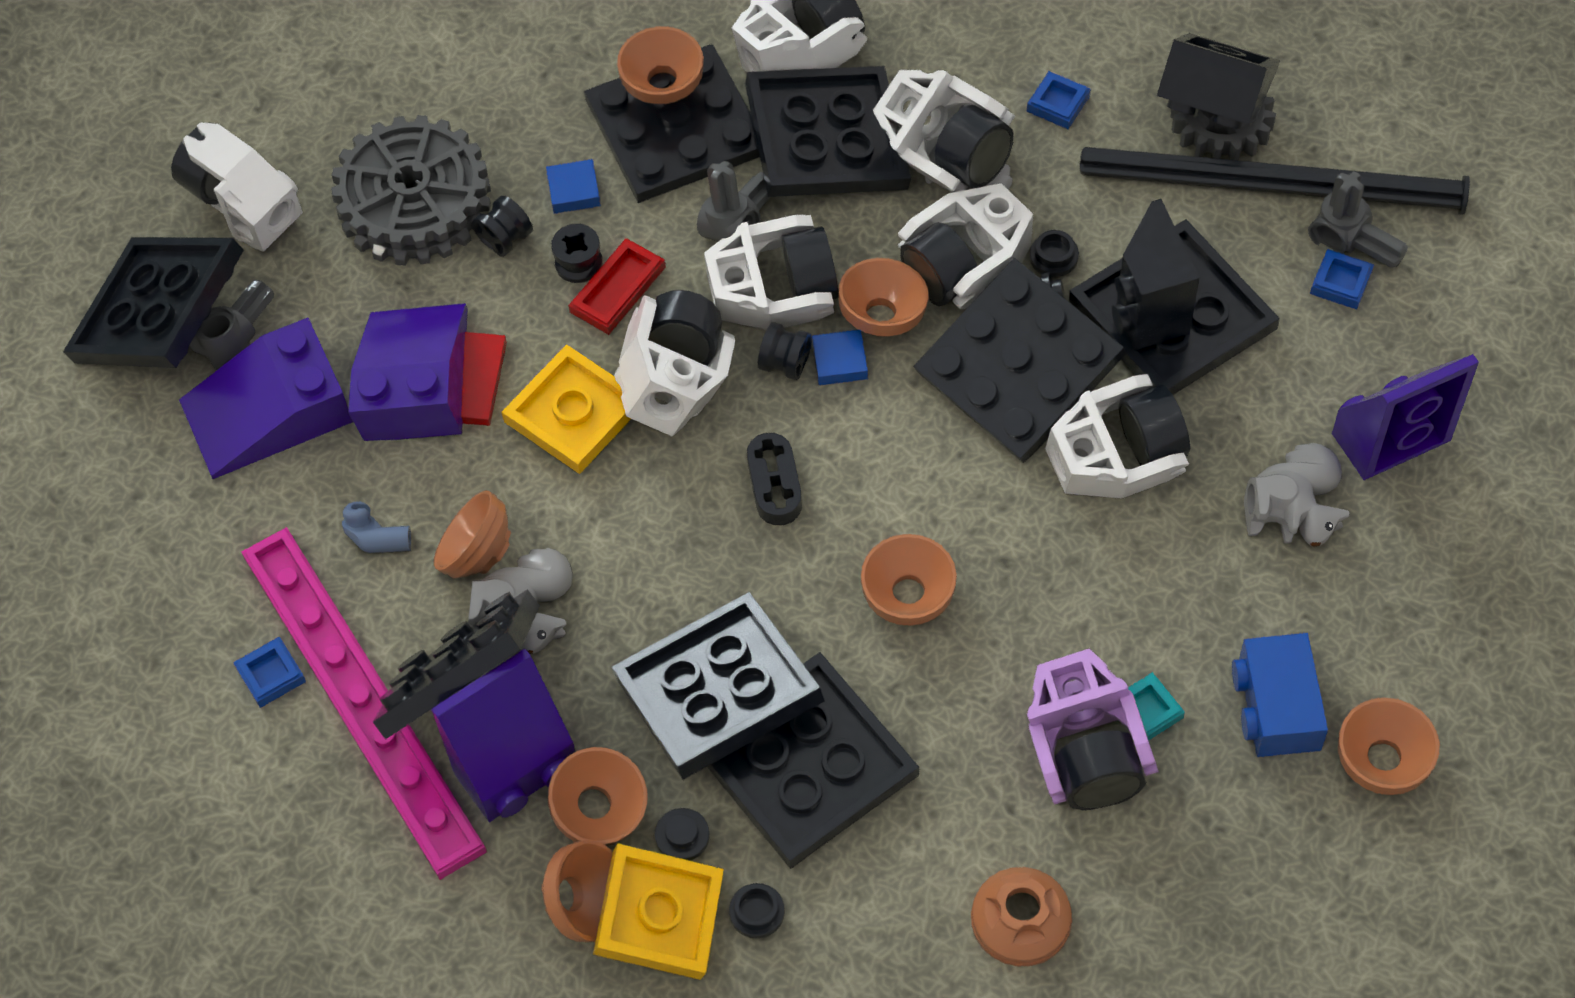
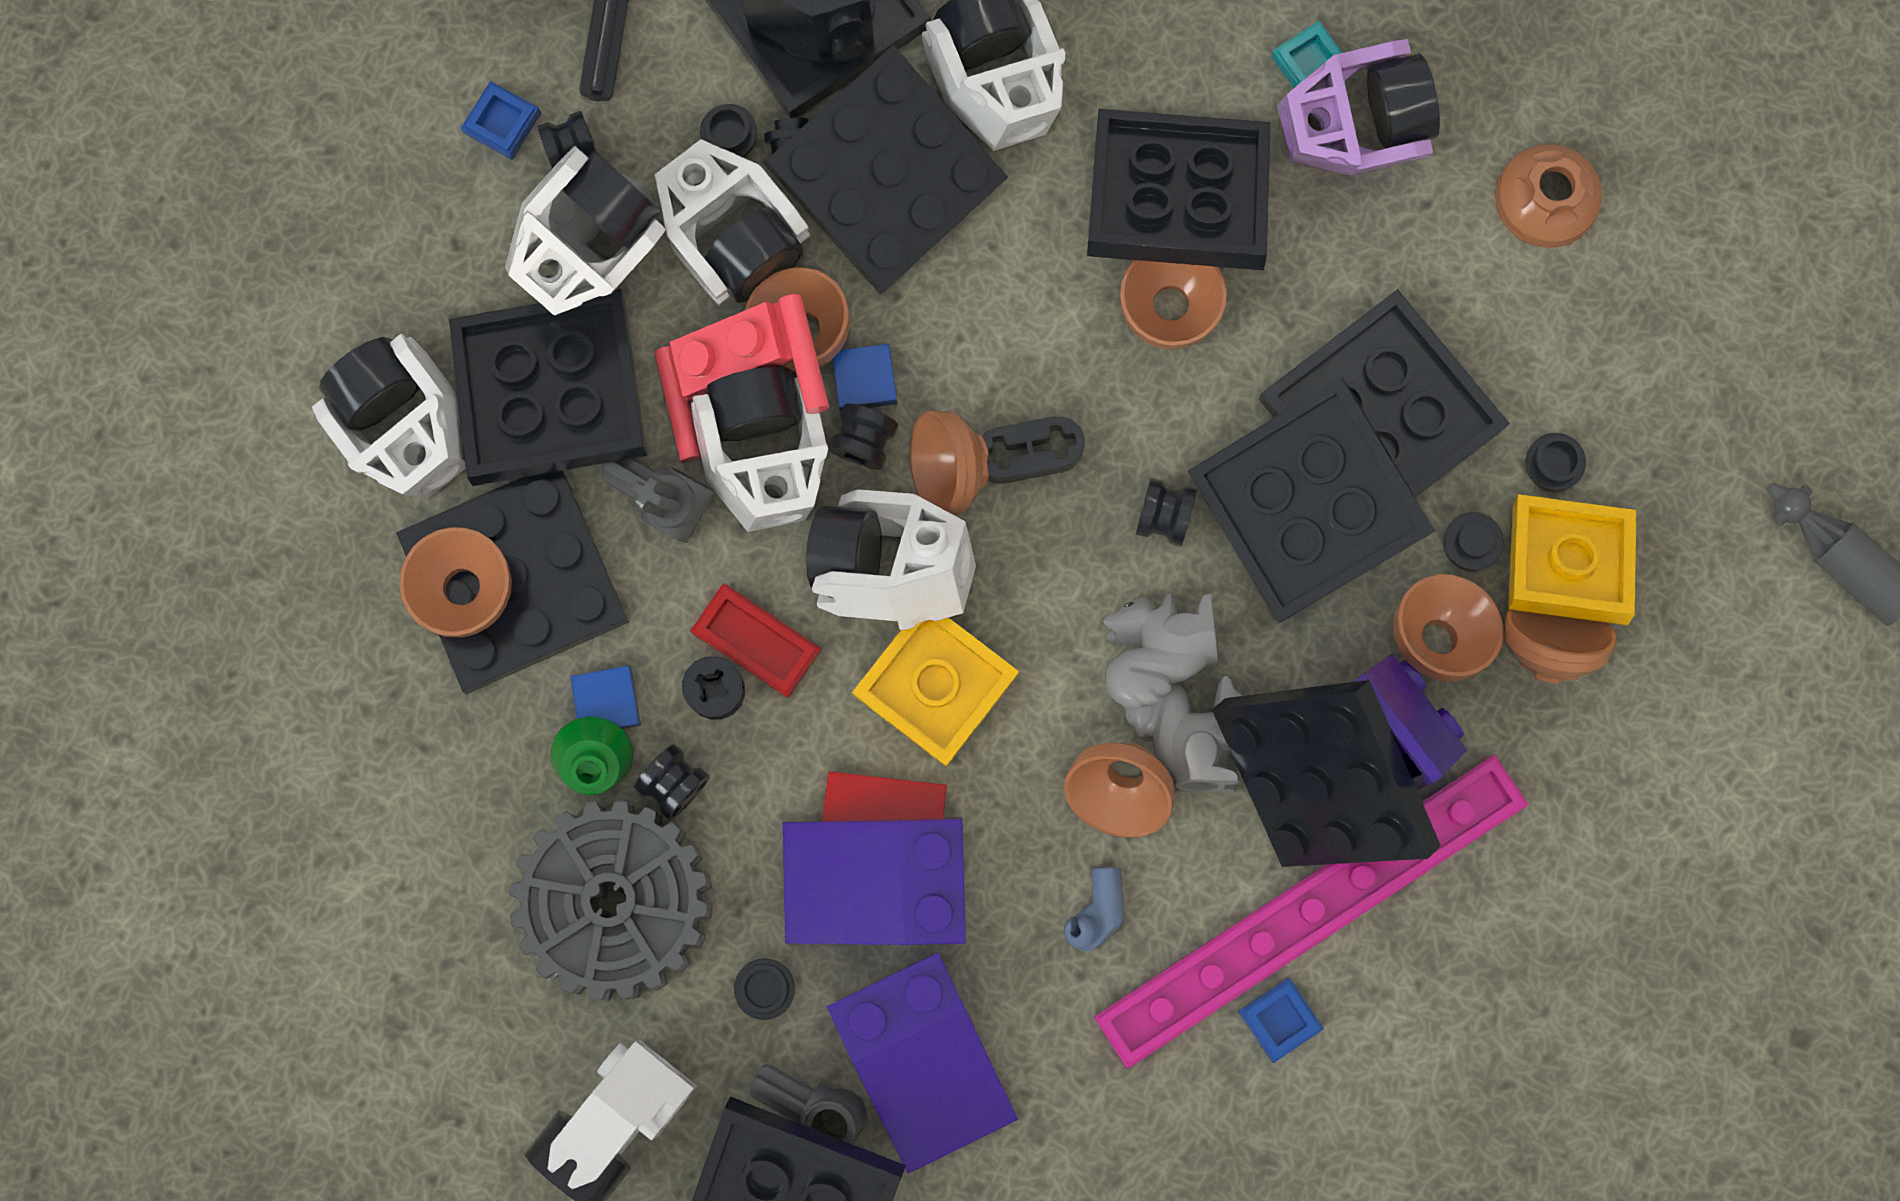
camera: 90 degrees left, 20 degrees up
(334, 296) = (764, 989): none -> black plate
(525, 171) = (591, 755): none -> green cone
(591, 577) = (1171, 648): none -> light grey animal
(713, 577) = (1166, 512): none -> black wheel
(758, 409) = (947, 460): none -> nougat piece
(856, 257) = (746, 341): none -> coral plate
(1005, 579) = (1180, 189): none -> black plate
(1035, 140) = (563, 137): none -> black wheel

